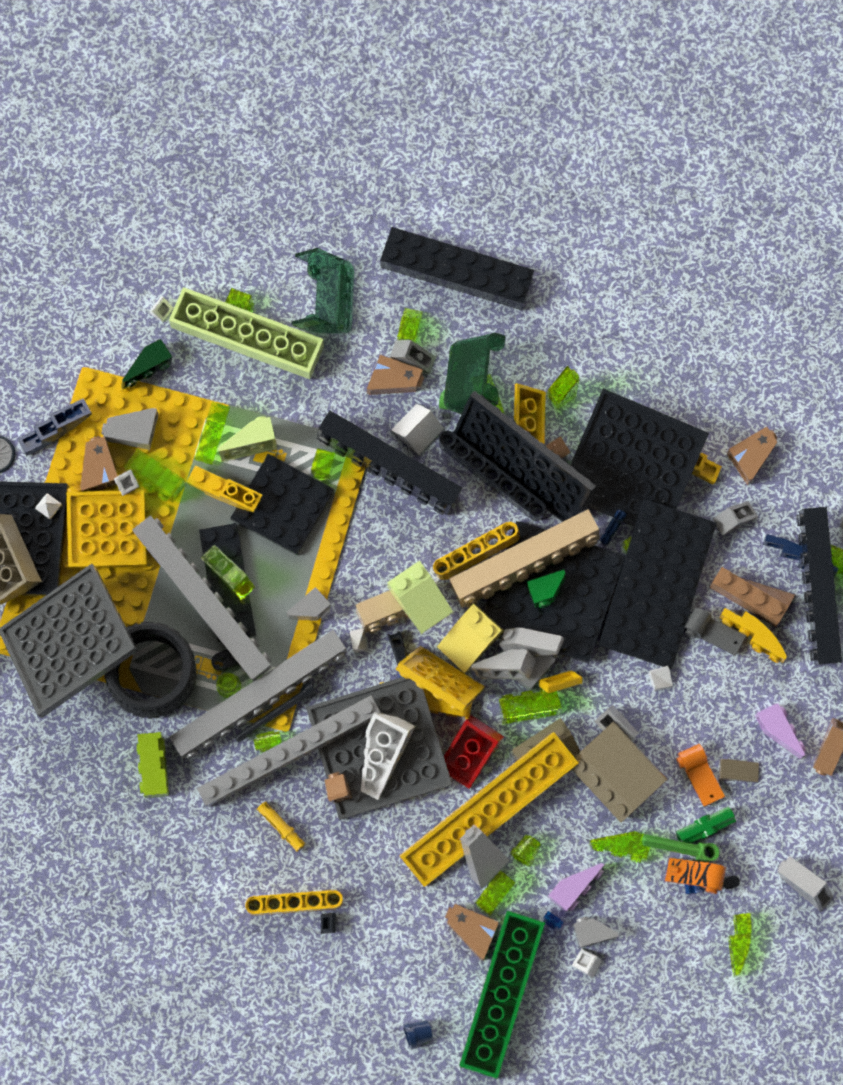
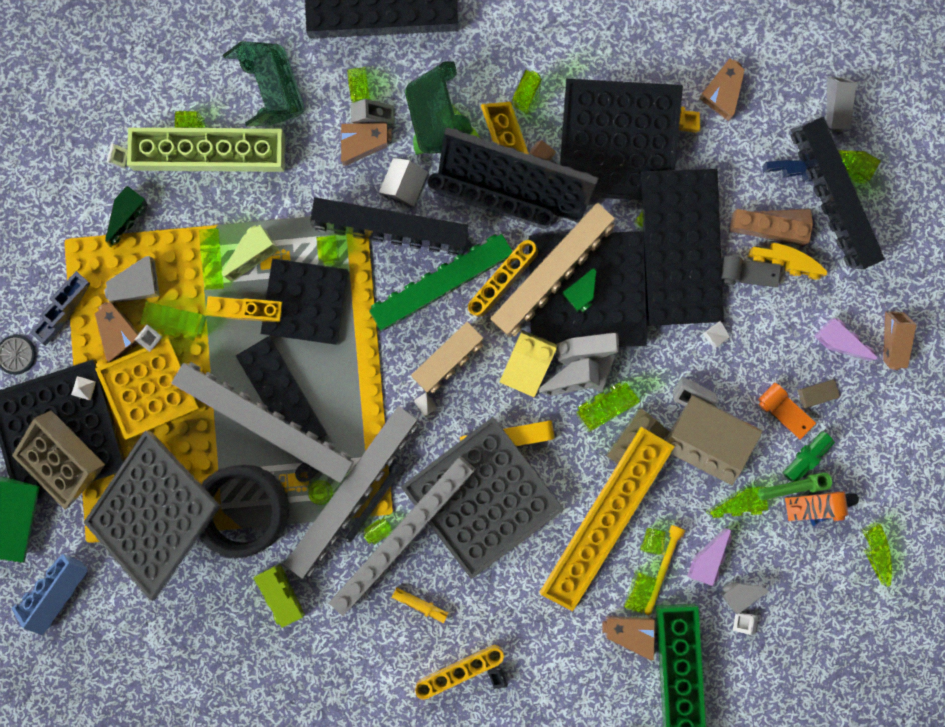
camera: 20 degrees left, 10 degrees up
(228, 572) = (278, 388): clear neon green slope -> none
(310, 607) = (369, 391): light grey slope -> none
(337, 788) = (459, 554): medium nougat slope -> none
(384, 746) = (488, 500): white wedge -> none
(399, 651) = (469, 403): black piece -> none
(416, 533) = (441, 282): none -> green brick
(419, 597) = (469, 347): yellowish green slope -> none
(440, 678) = (516, 416): yellow plate -> none
(471, 751) = (568, 468): red slope -> none
(482, 856) = (617, 565): light grey slope -> none
(550, 852) = (675, 534): none -> yellow piece
(552, 921) = (702, 598): clear blue plate -> none
(560, 681) = (627, 373): yellow tile -> none
(612, 527) = (621, 206): dark blue axle -> none
(735, 517) = (730, 157): light grey slope -> none
(805, 883) = (917, 475): slope -> none

